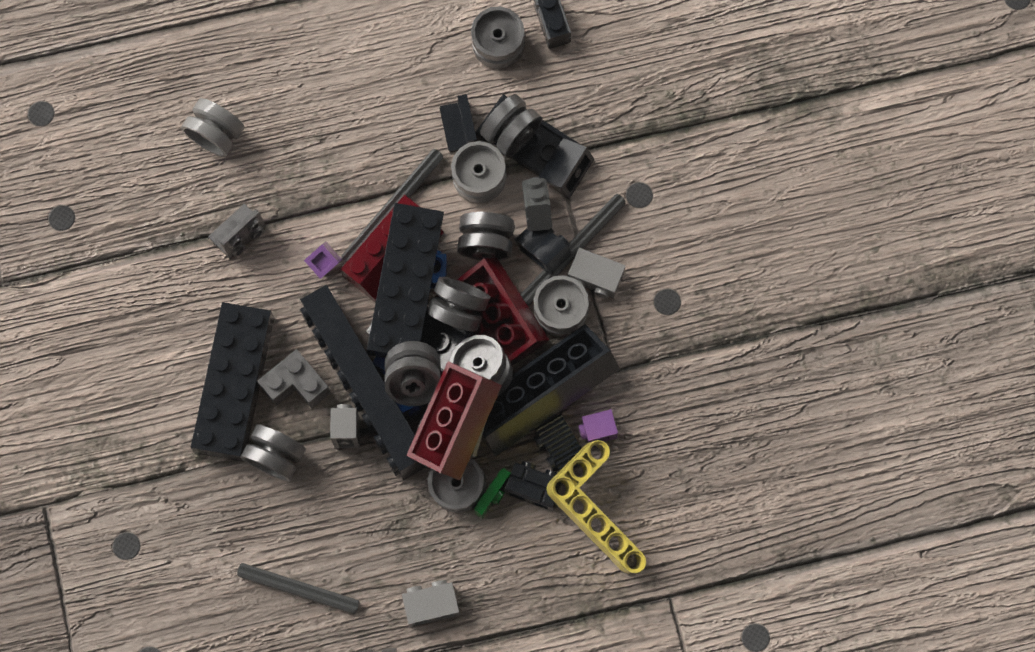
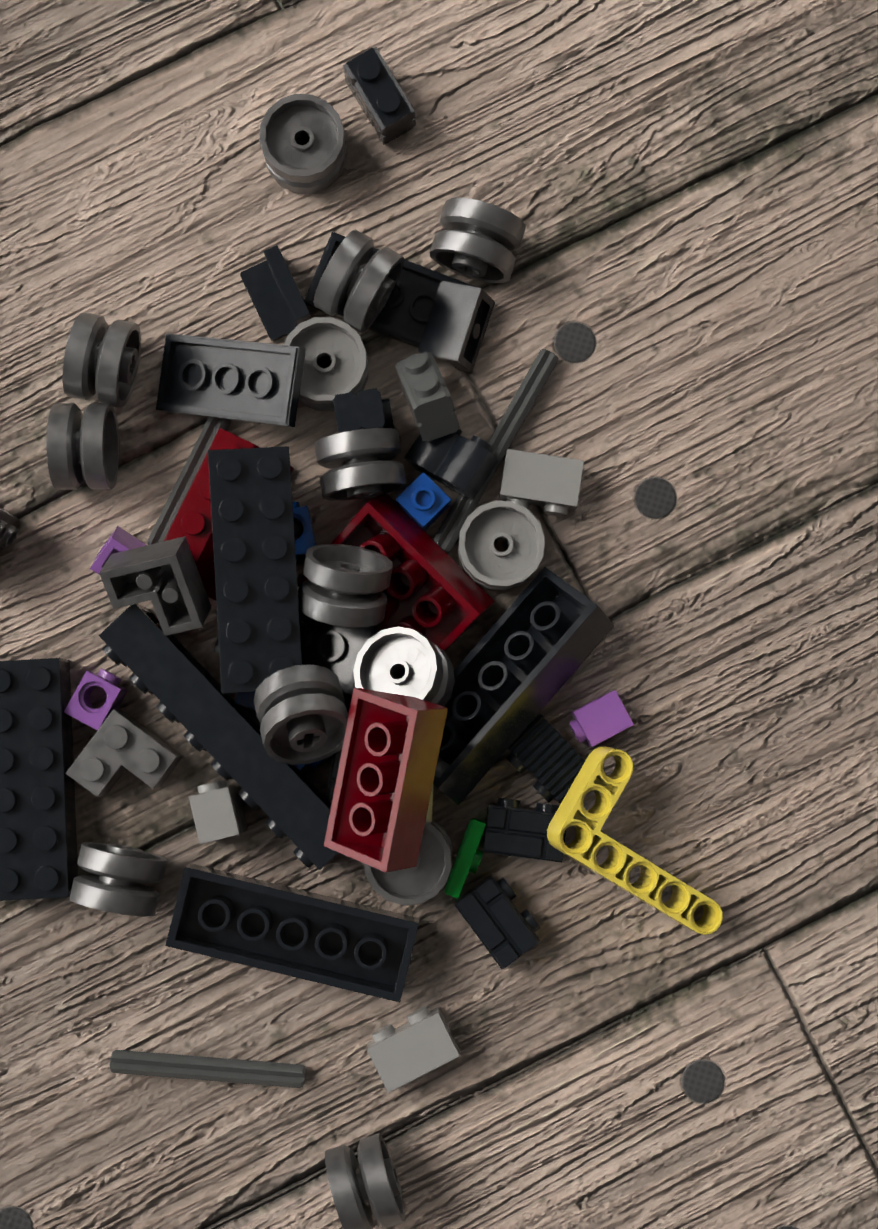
camera: 15 degrees left, 10 degrees up
(274, 344) = (80, 705): none -> medium lavender brick
(317, 187) = (82, 446): none -> flat silver wheel
(342, 138) = (101, 359): none -> flat silver wheel
(349, 272) = (165, 576): none -> flat silver brick
(374, 512) = (292, 932): none -> black brick
(417, 167) = (231, 379): none -> tile
(494, 202) = (362, 411): none -> black brick
(503, 537) = (498, 921): none -> black brick
(520, 269) = (423, 501): none -> blue brick
(591, 118) = (477, 240): none -> flat silver wheel

